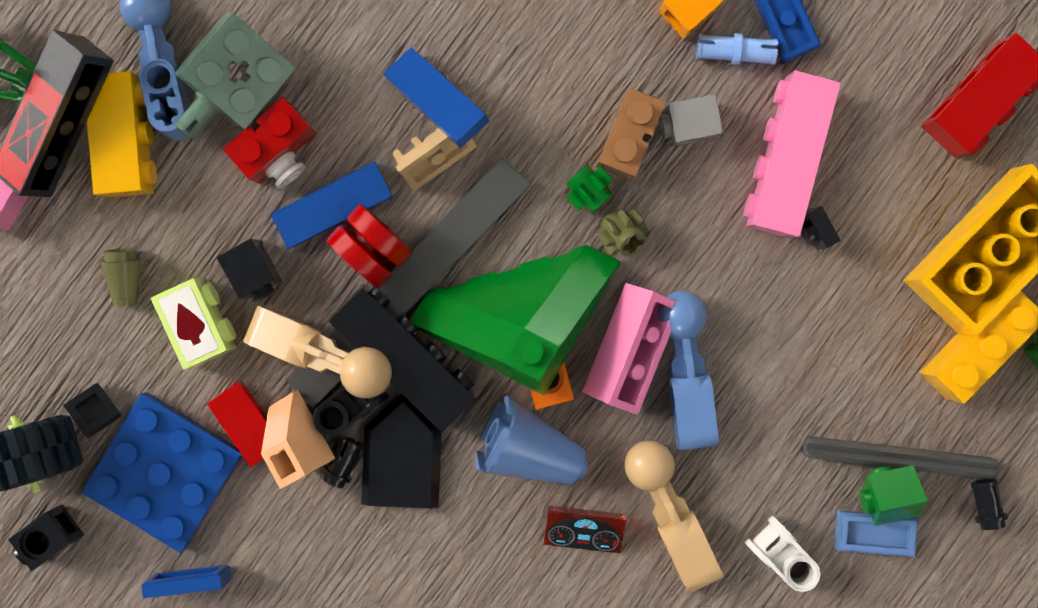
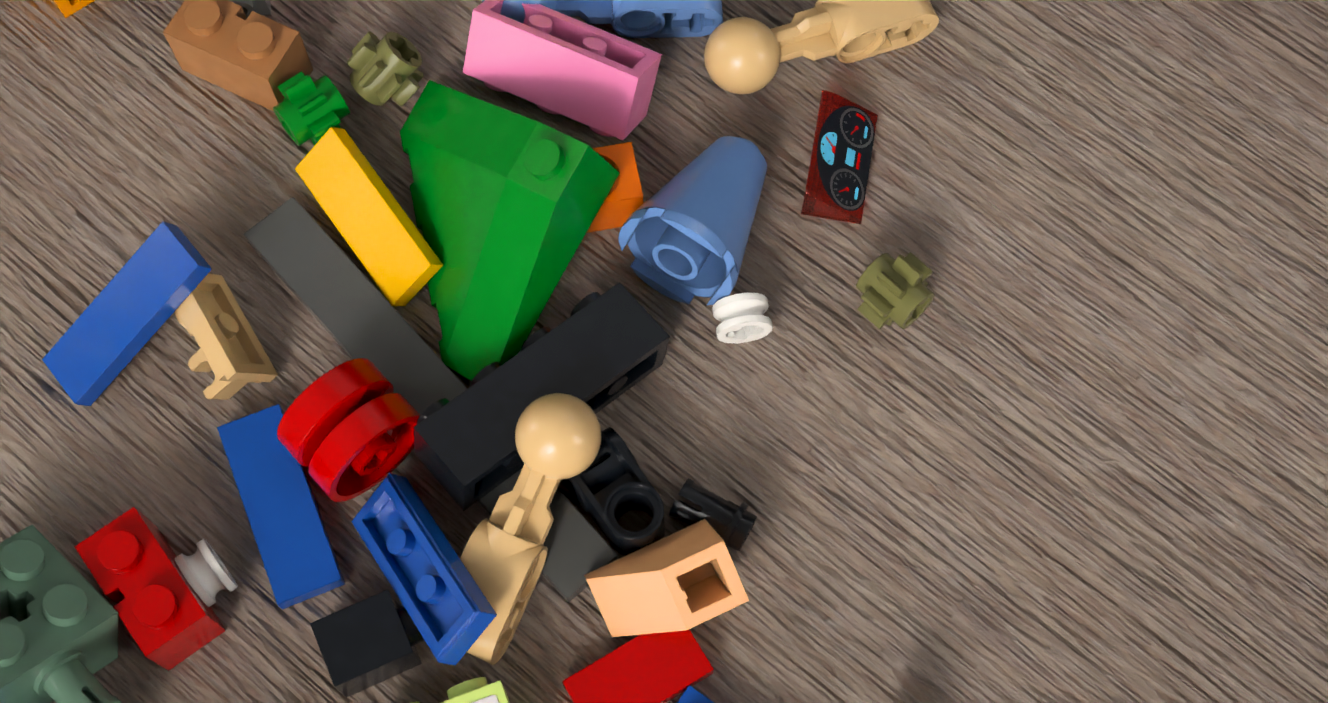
camera: 90 degrees left, 20 degrees down
(289, 298) = (423, 569): none -> blue tile
(401, 458) = (711, 425): black tile -> none
(466, 473) = (742, 318): none -> white bush
(489, 568) = (895, 290): none -> olive gear
(520, 233) = (368, 217): none -> yellow tile

